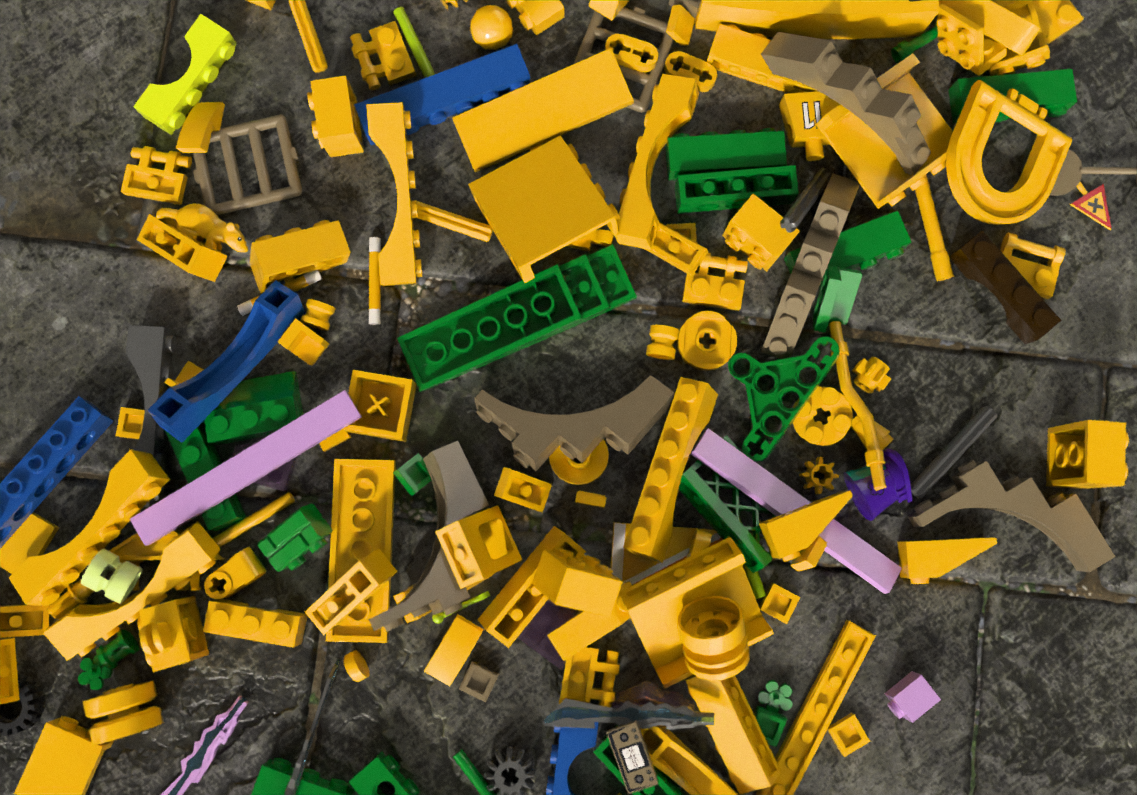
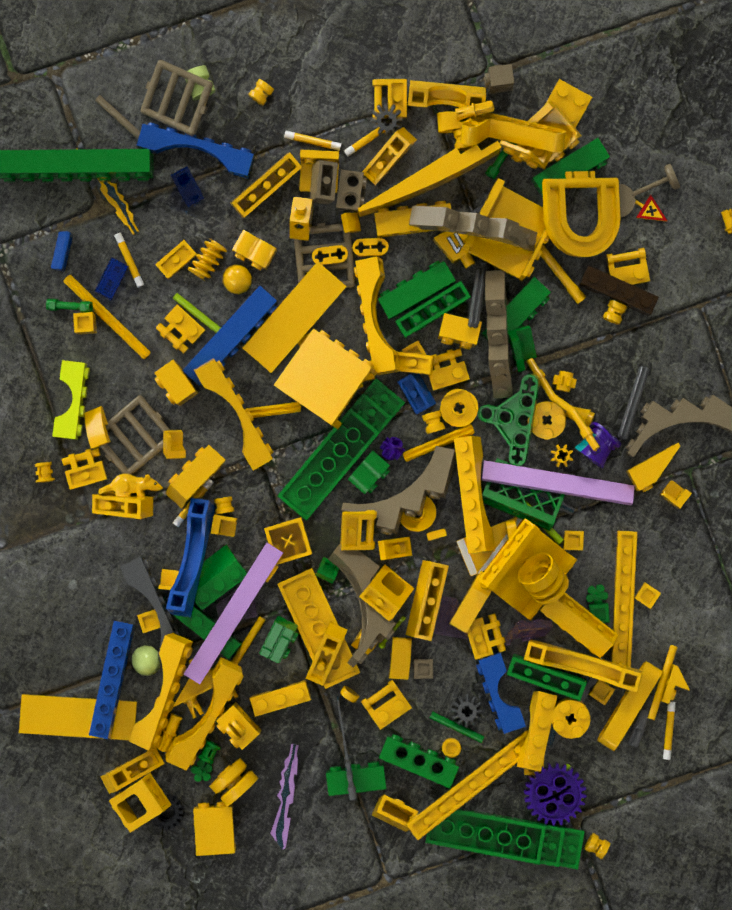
camera: 20 degrees left, 5 degrees up
(94, 474) = (146, 660): none -> yellowish green hair
(100, 152) = (44, 472): none -> yellow bush
(122, 580) = (195, 707): yellowish green wheel -> none
(238, 572) = (256, 674): yellow piece -> none
(292, 198) = (173, 444): none -> yellow panel
(374, 282) = (245, 467): yellow bar -> none
(401, 717) = (390, 709): none -> yellow plate
(474, 432) = (352, 527): none -> yellow plate
(539, 367) = (369, 472): none -> green brick
(577, 582) = (451, 585): yellow brick -> none
(584, 715) = (517, 644): dark grey sword -> none
(587, 350) = (392, 448): none -> dark purple gear
(632, 757) = (529, 666): tile -> none
(658, 292) = (416, 392): none -> blue slope
(665, 375) = (440, 441): none -> yellow axle
(800, 527) = (562, 493): yellow slope -> none
(810, 555) = (576, 504): yellow tile -> none
(911, 697) = (672, 557): lavender brick -> none
(954, 610) = (675, 494): none -> yellow panel
(985, 314) = (614, 312): none -> yellow wheel
(1087, 455) = (707, 371): yellow brick -> none

